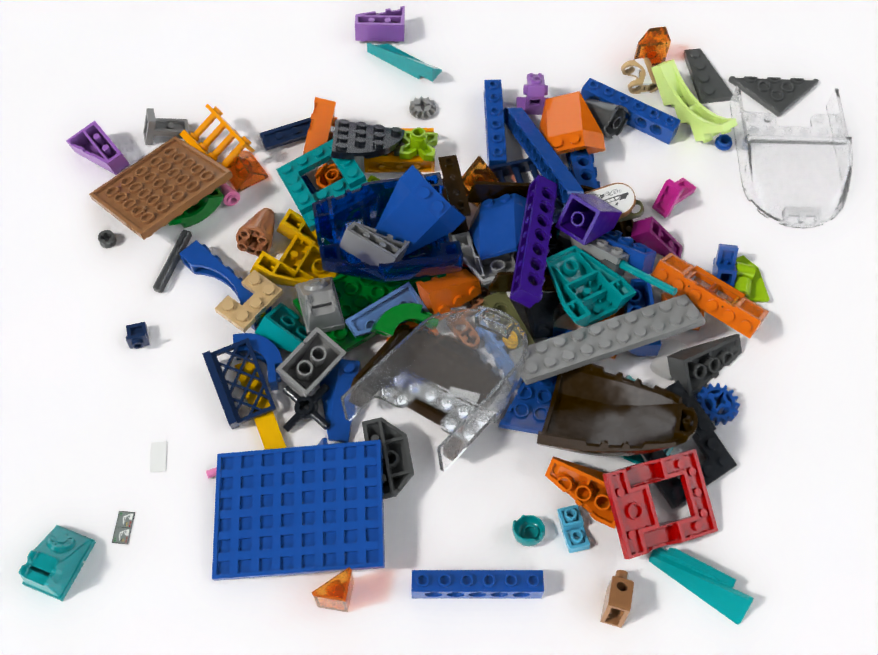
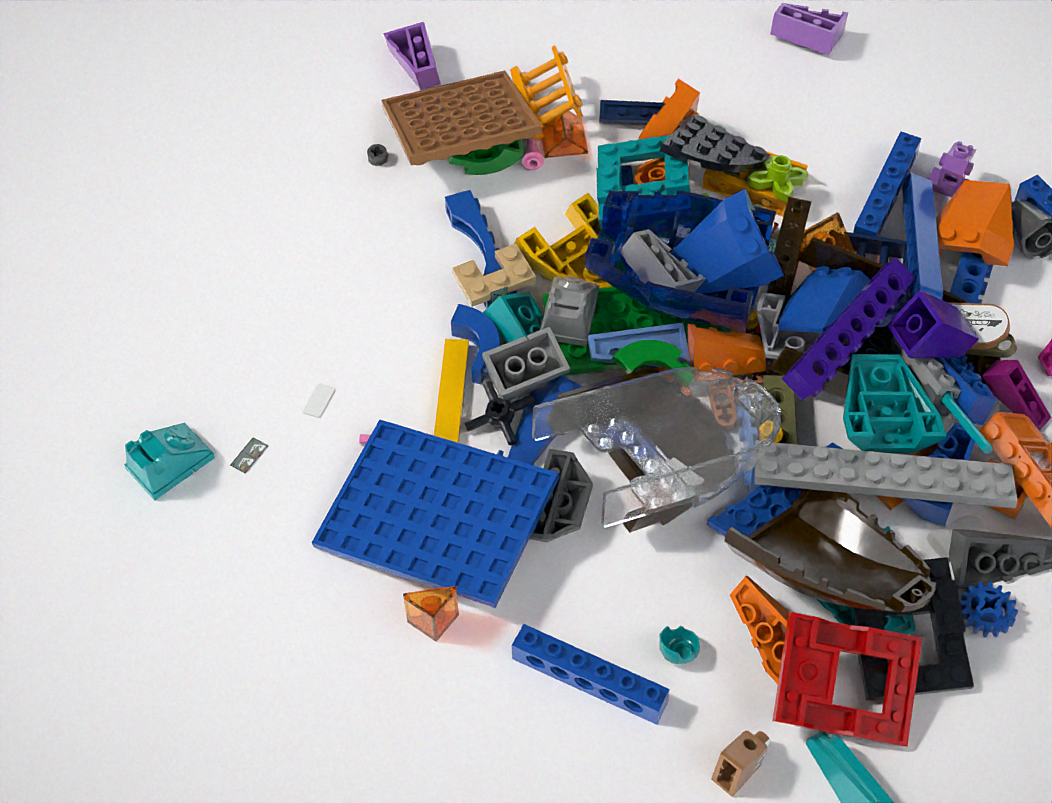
camera: 30 degrees right, 5 degrees down
(137, 335) = (358, 266): dark blue bracket -> none
(162, 126) = (496, 55): light grey bracket -> none
(172, 261) = (433, 204): dark grey axle -> none
(222, 387) = (419, 359): dark blue fence -> none
(257, 233) = (541, 207): nougat cone -> none
(404, 61) = (816, 78): teal wedge -> none
(416, 111) = (816, 145): light grey gear -> none
(544, 314) = (823, 421): black arch -> none
(573, 529) = (733, 668): medium azure slope -> none

